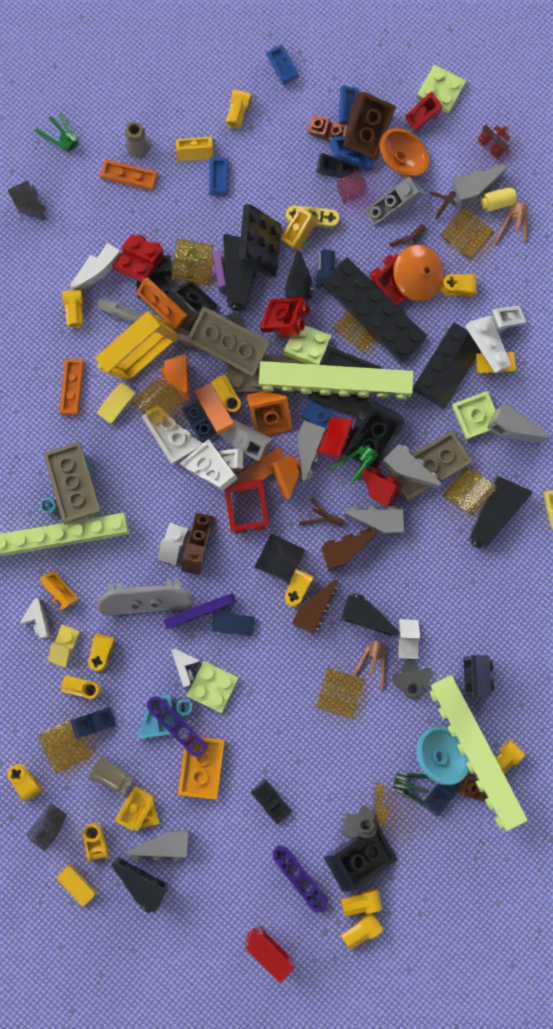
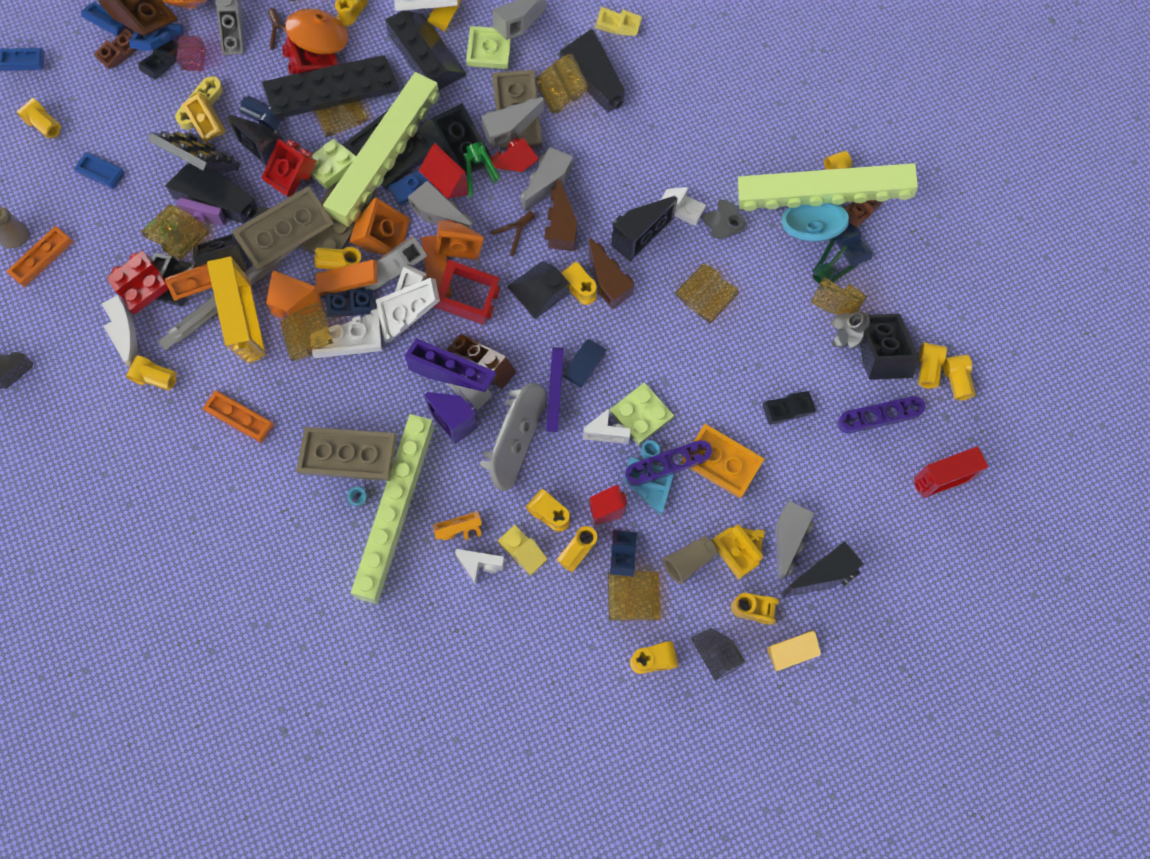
camera: 70 degrees left, 10 degrees down
(116, 402) = (283, 376): light yellow slope -> none
(122, 695) = (608, 505): none -> red slope
(138, 544) = (452, 414): none -> dark purple slope
(174, 524) = (447, 367): none -> dark purple slope
(194, 149) = (54, 180): yellow slope -> none
(376, 651) = (679, 238): nougat plant -> none
(477, 675) = (748, 155): black slope -> none

